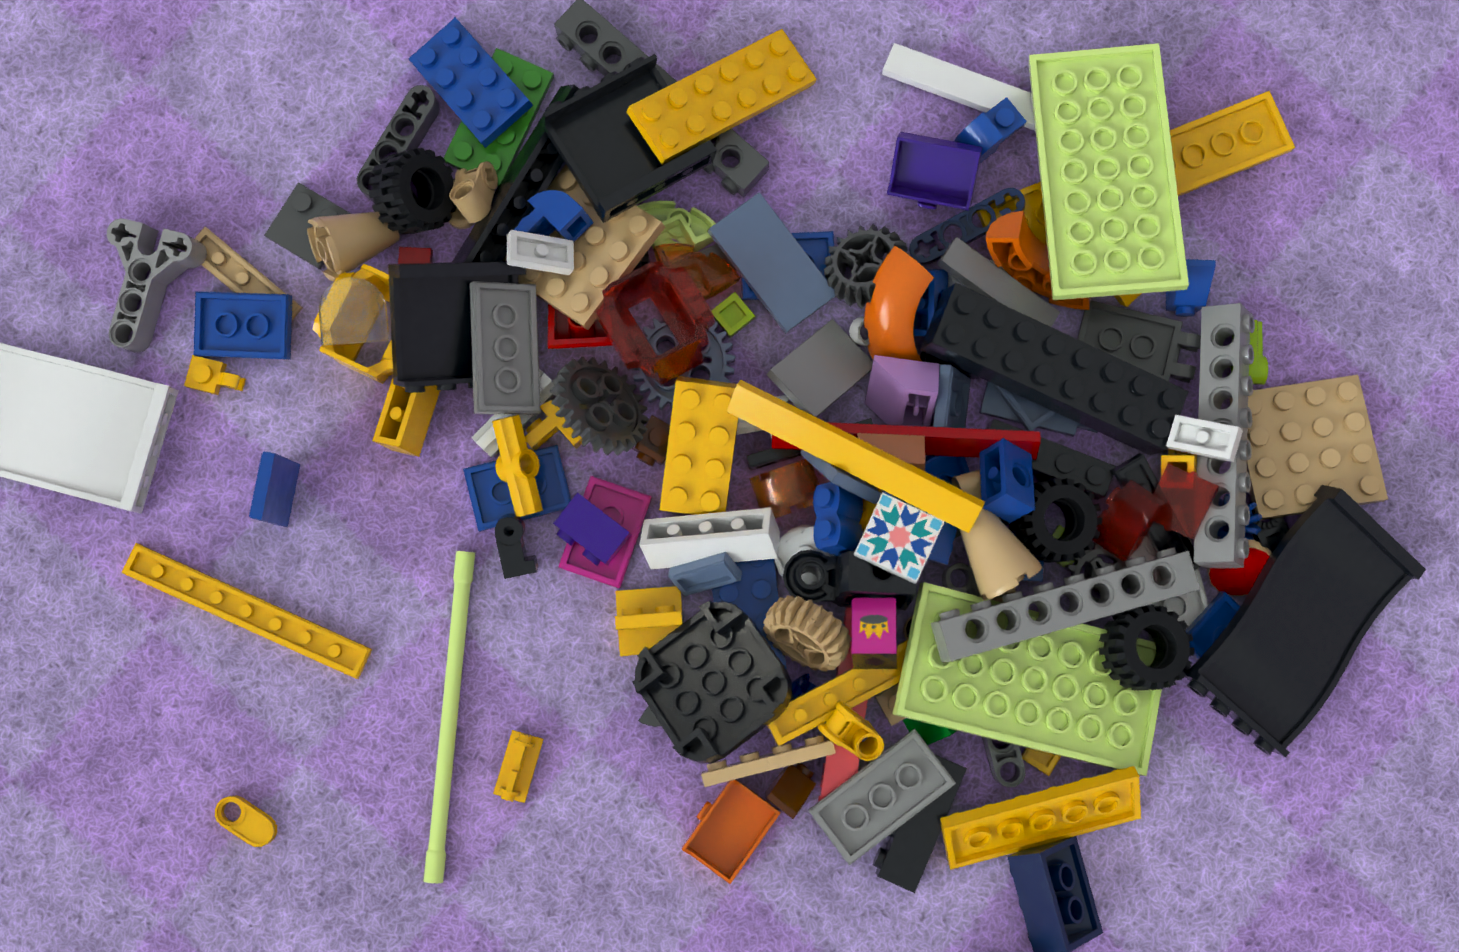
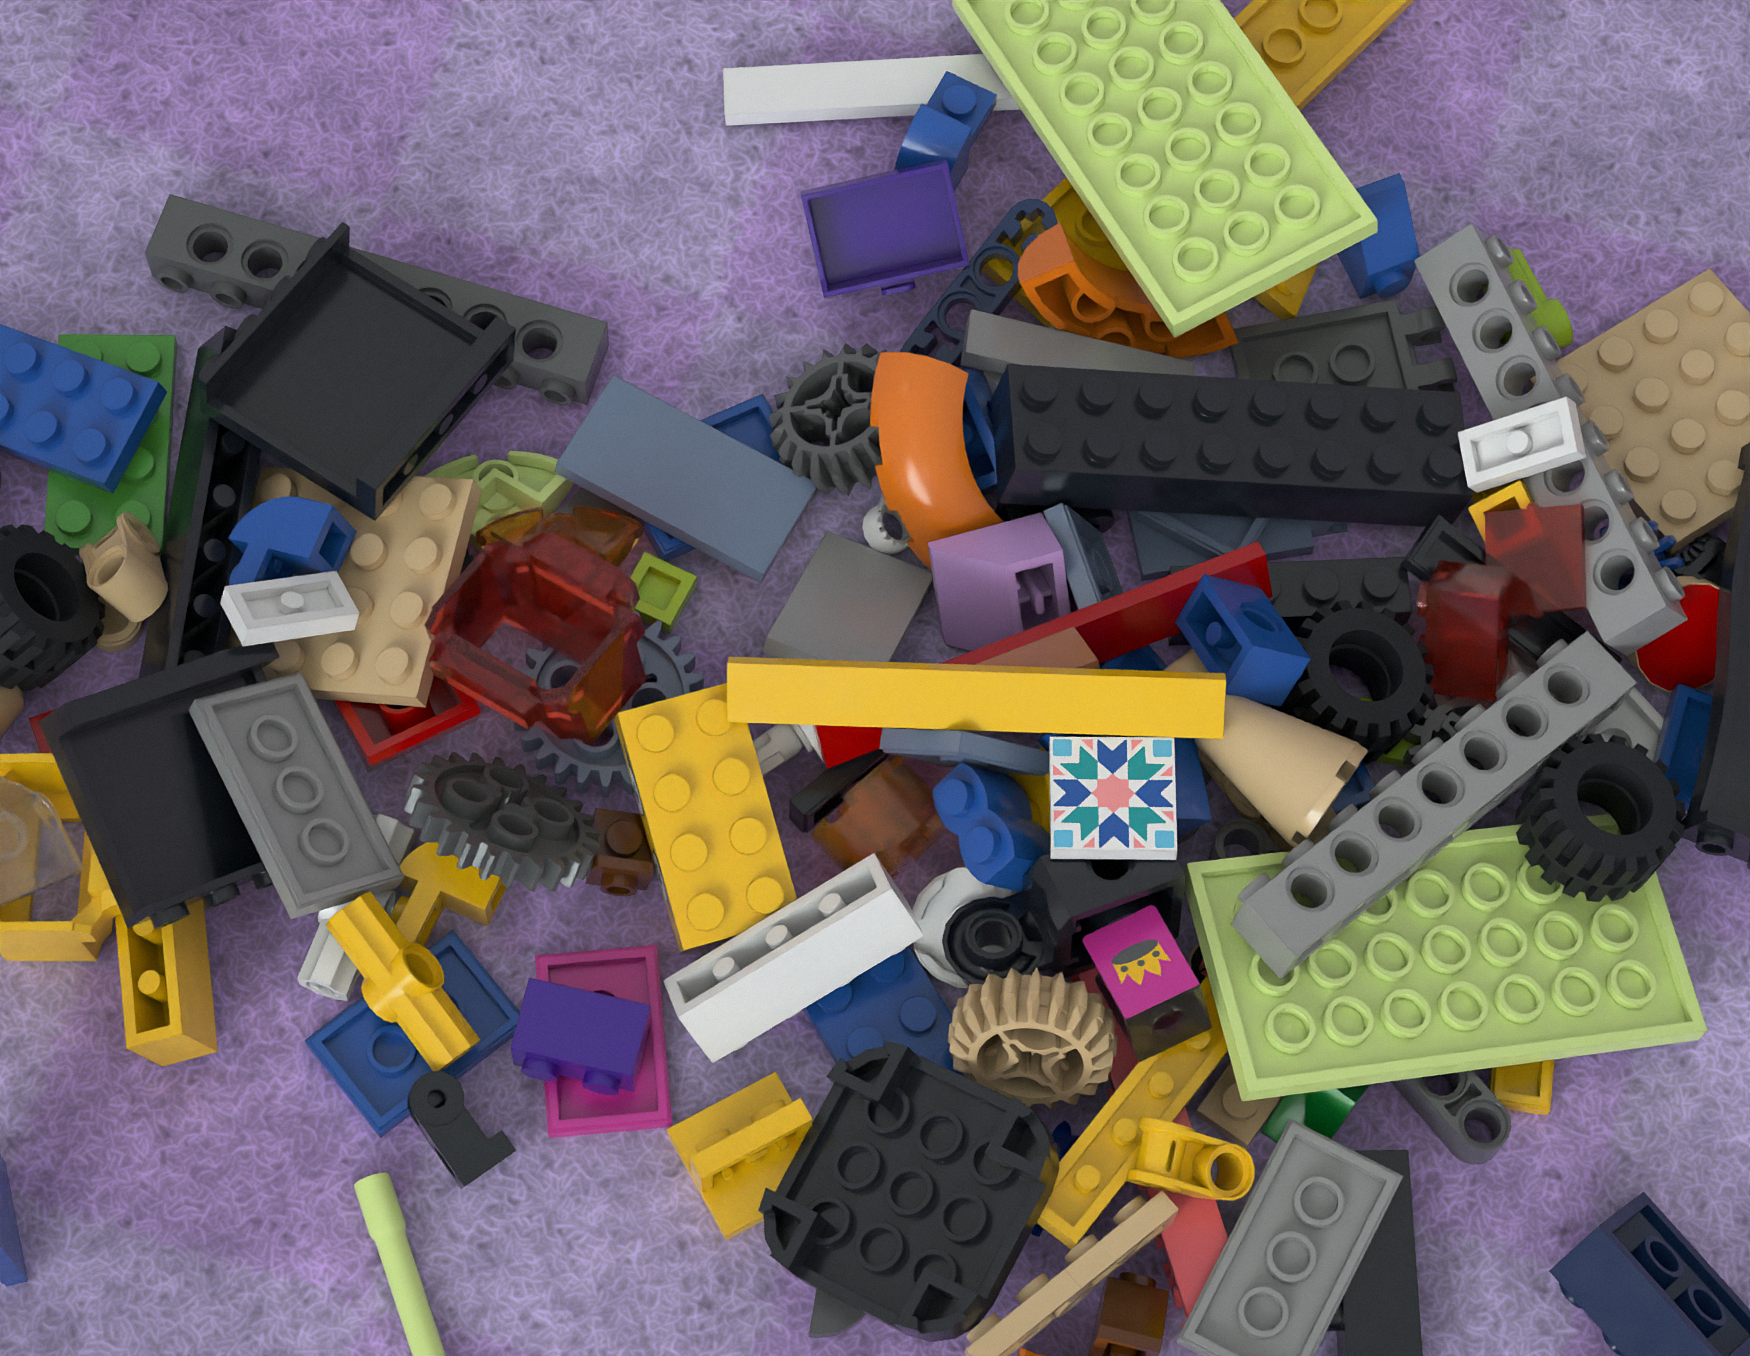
camera: 30 degrees left, 15 degrees down
(705, 574) = (811, 1024): sand blue tile -> none
(721, 96) = (479, 252): yellow plate -> none
(1041, 817) = (1570, 1179): yellow plate -> none

